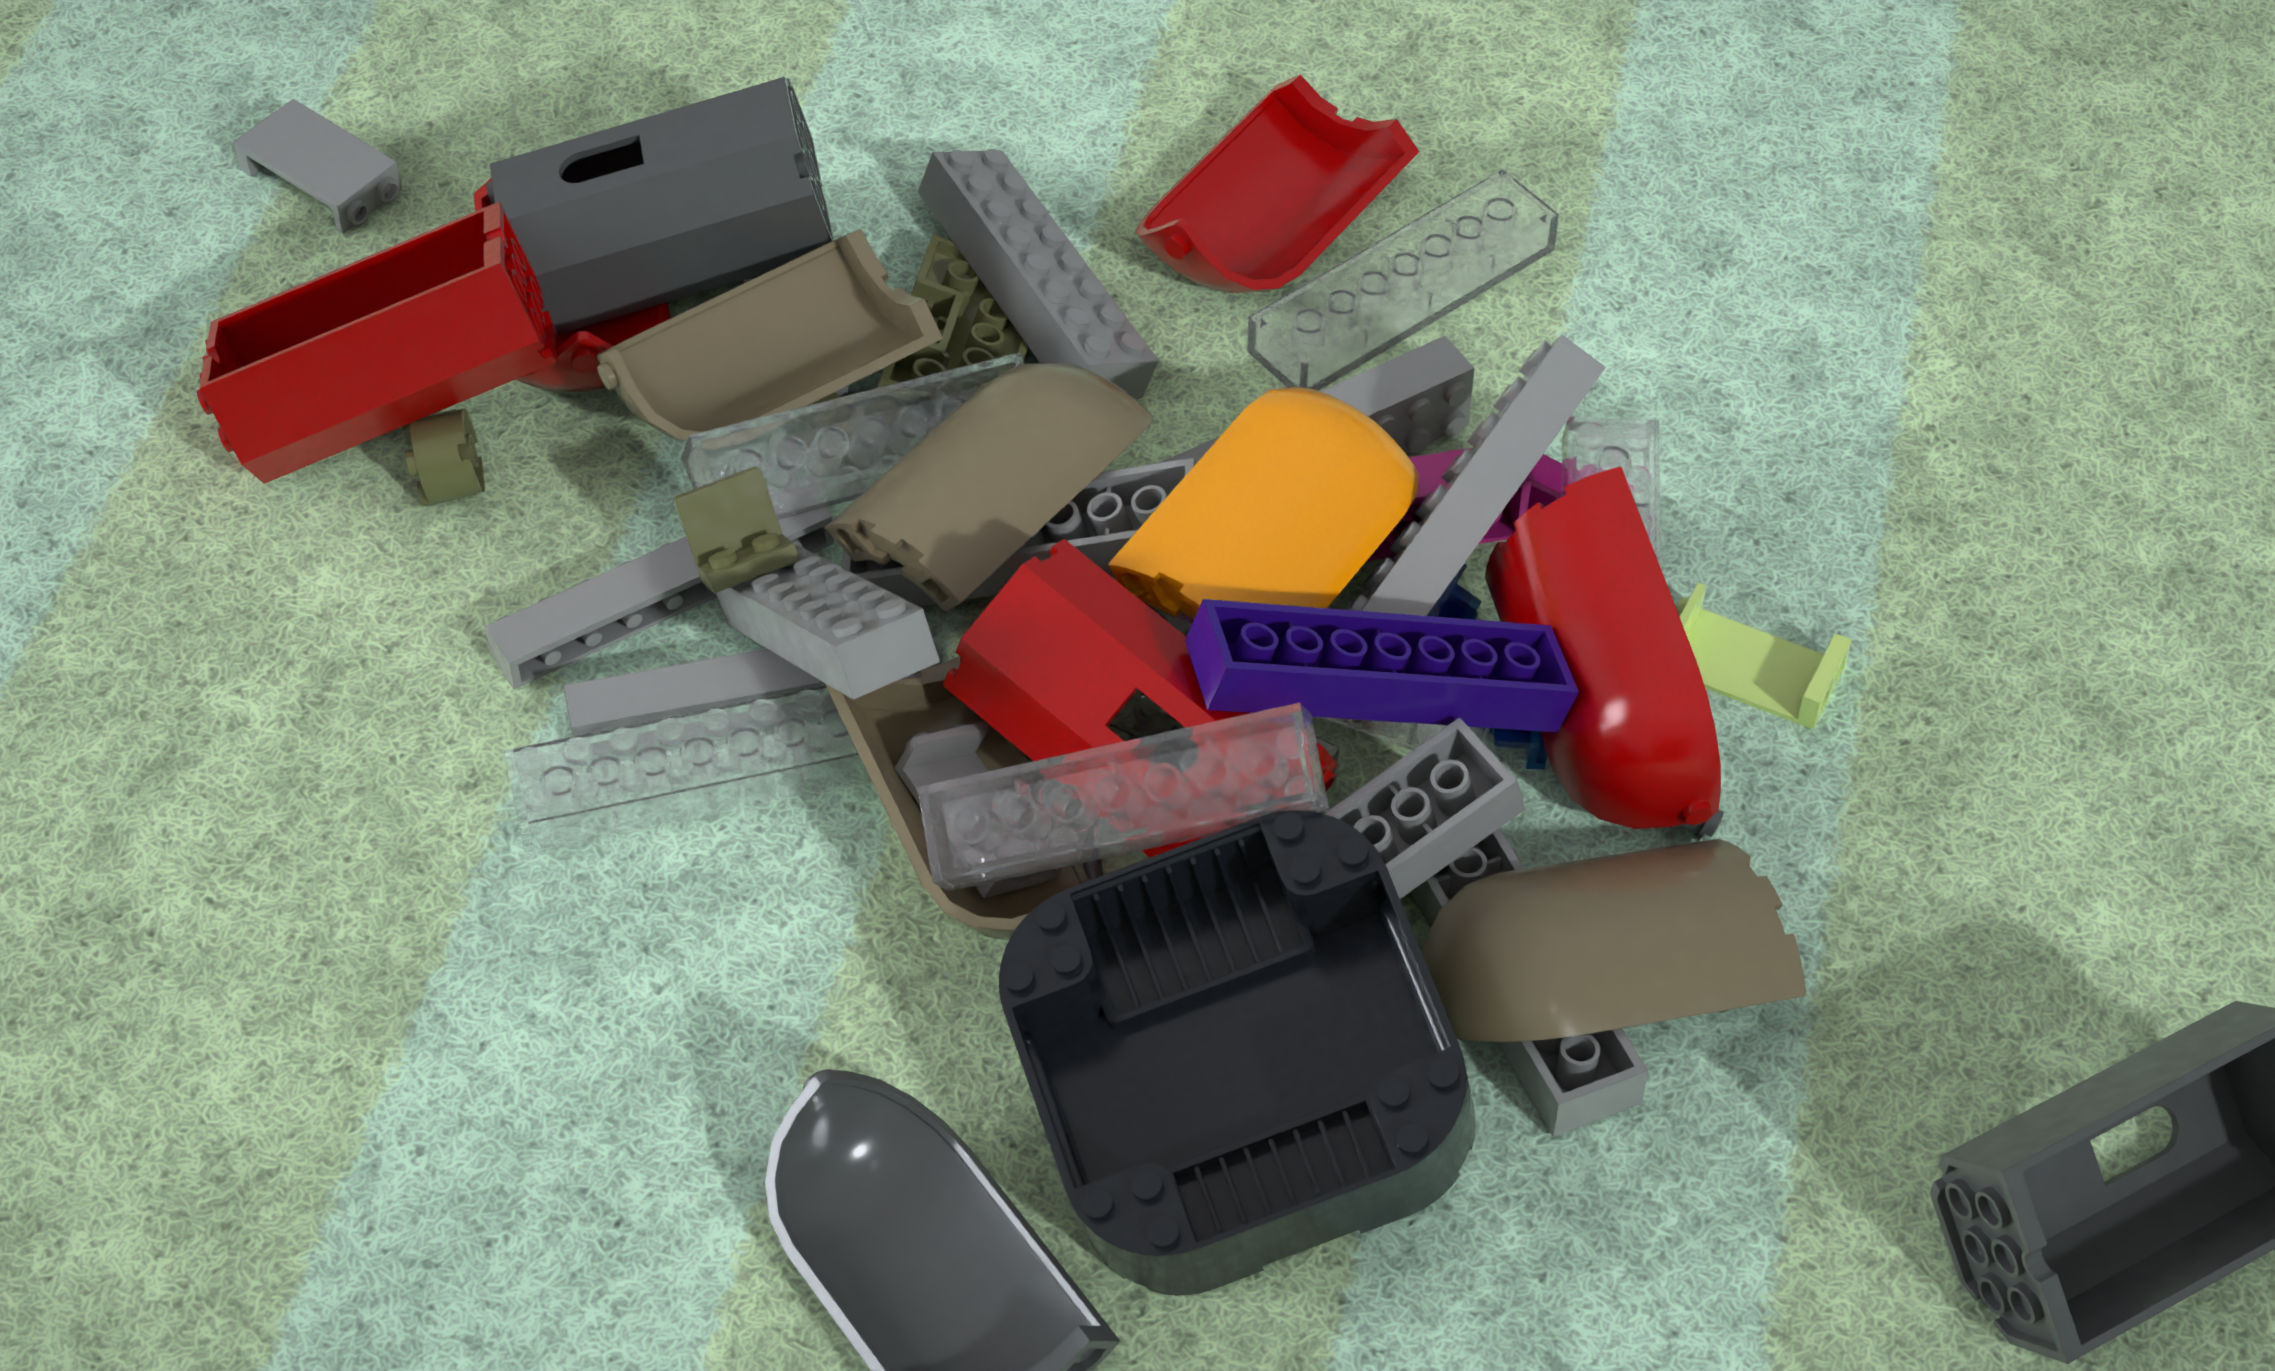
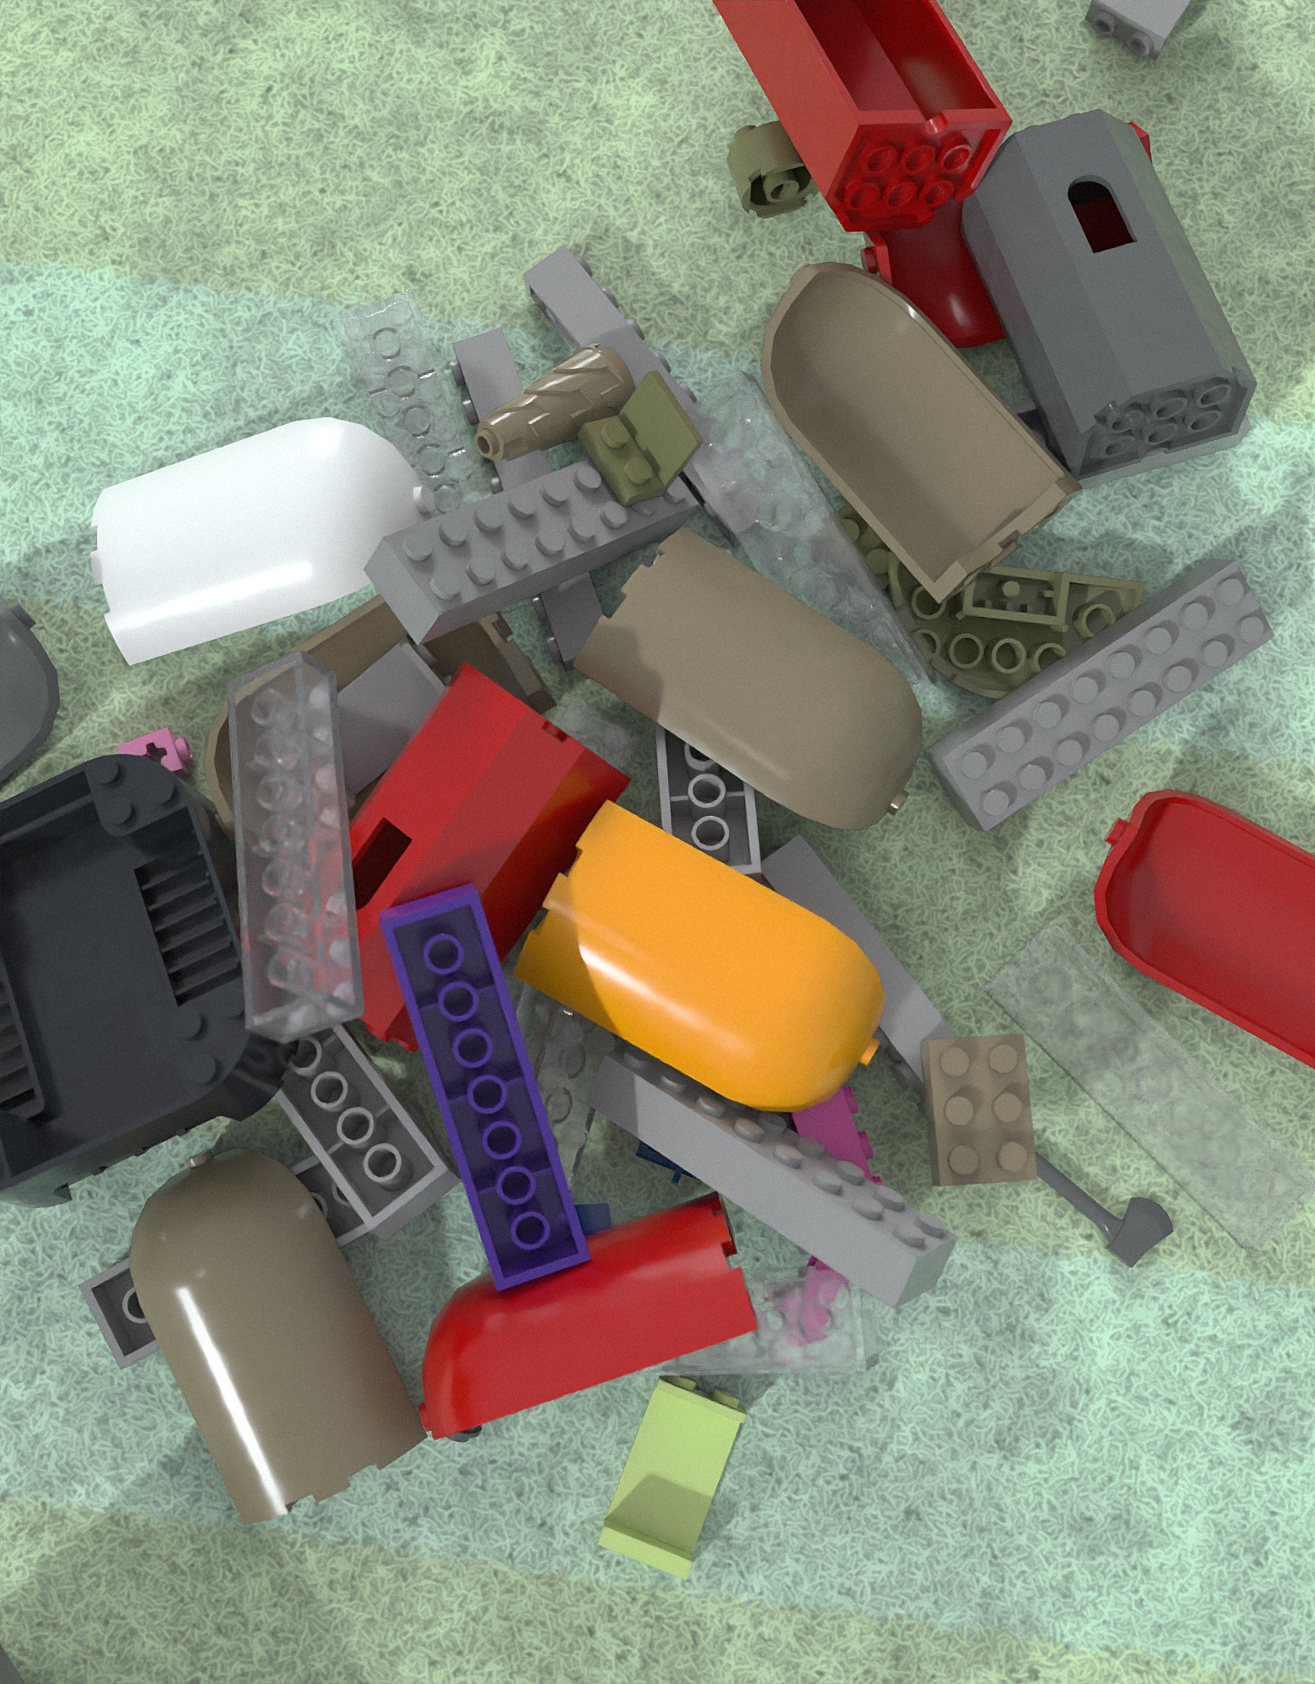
camera: 85 degrees right, 30 degrees up
(664, 622) = (555, 407): none -> dark tan cone
(760, 899) = (248, 533): none -> white panel
(984, 1037) = (165, 740): none -> bright pink brick
(1426, 353) = (978, 1110): none -> dark tan brick
(1538, 323) = (1127, 1238): none -> dark grey piece

